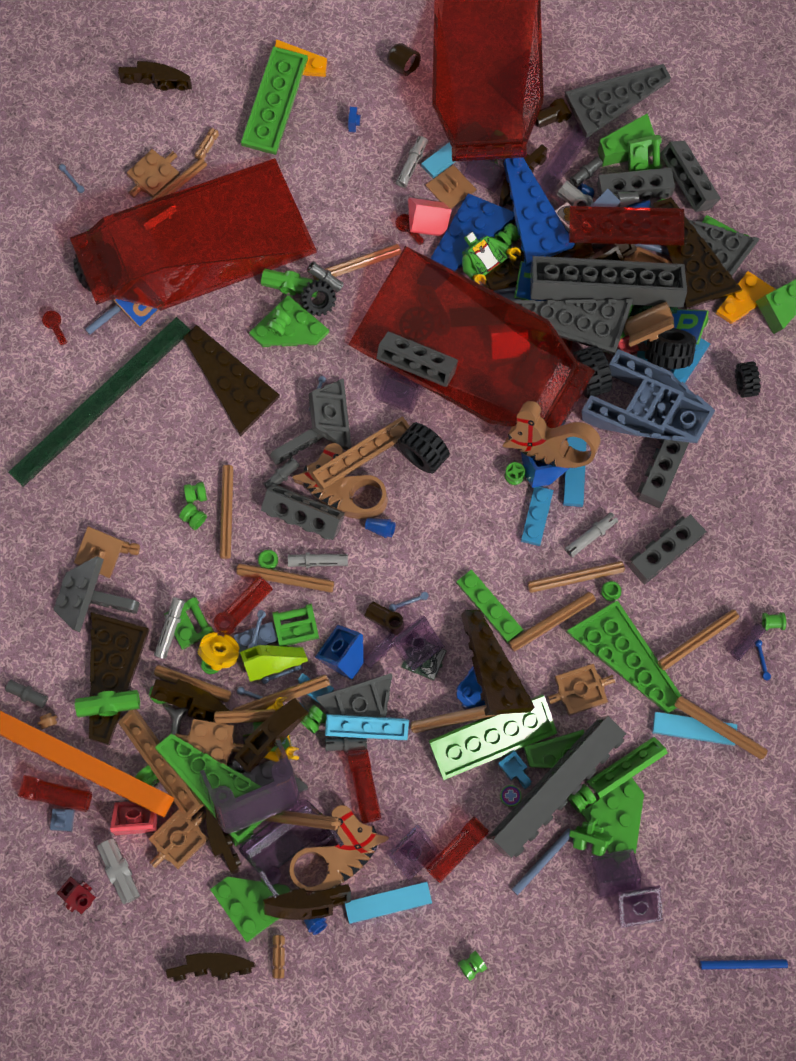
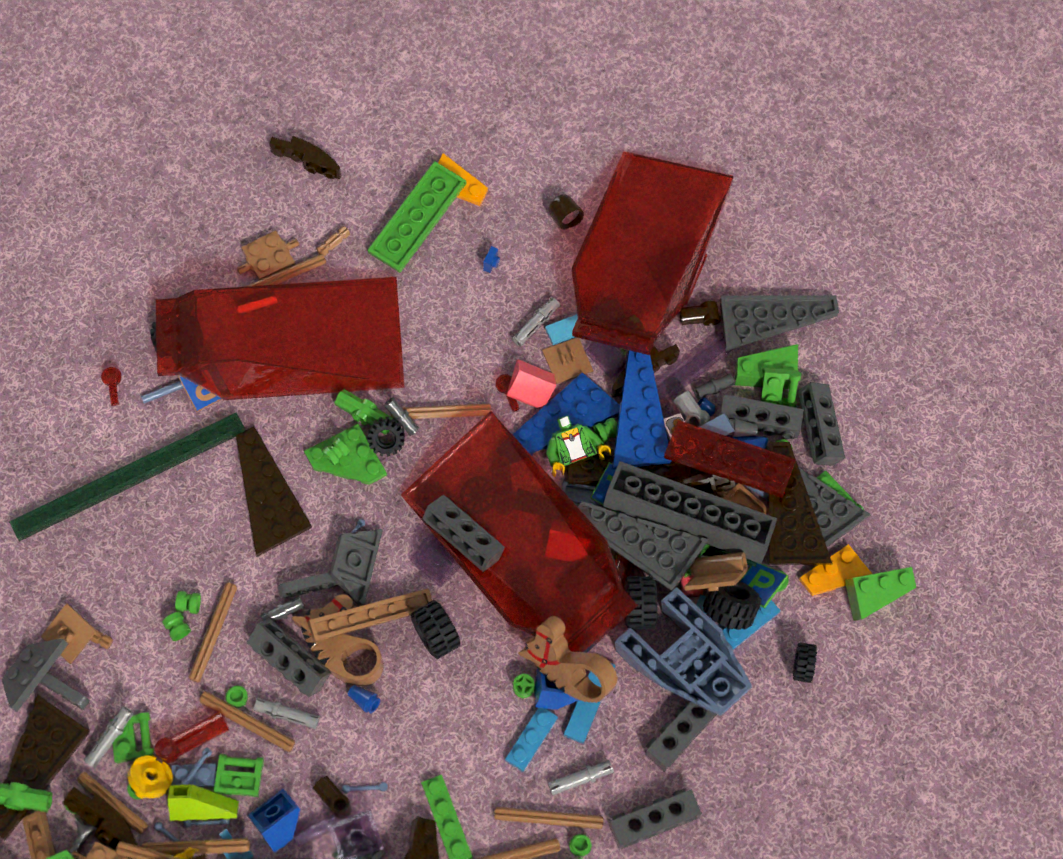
camera: 15 degrees right, 5 degrees down
(80, 189) = (190, 250): sand blue hinge -> none

